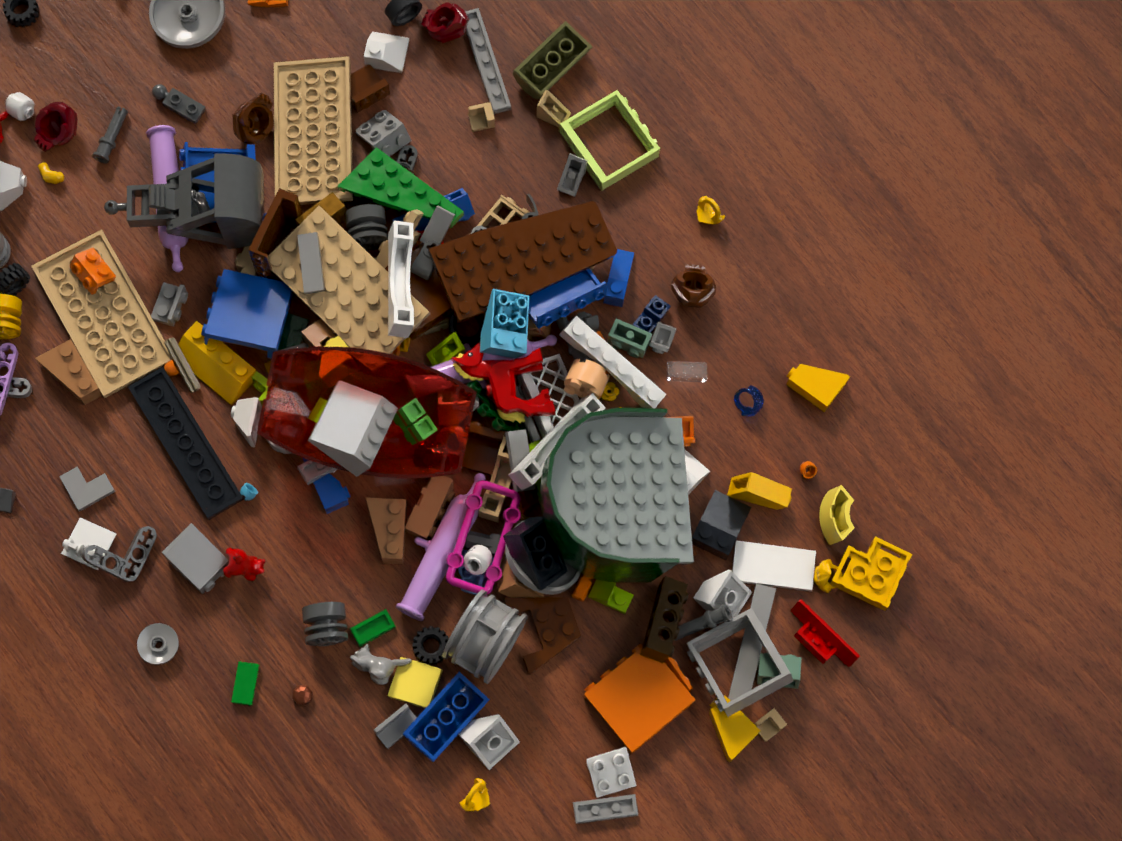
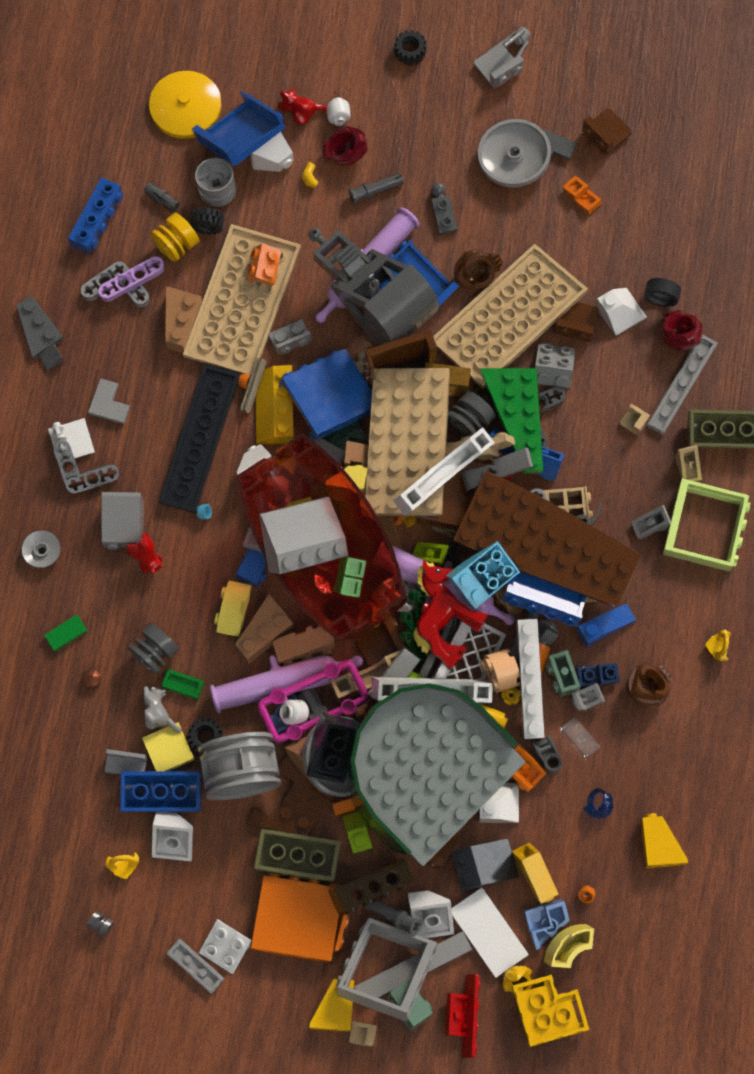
camera: 55 degrees right, 0 degrees up
(311, 263) = (400, 401): light grey tile -> none
(354, 540) = (233, 608): none -> light yellow brick
(591, 655) = (297, 856): none -> olive brick
(678, 402) = (545, 752): none -> dark grey piece
(801, 516) = (545, 920): none -> medium blue slope

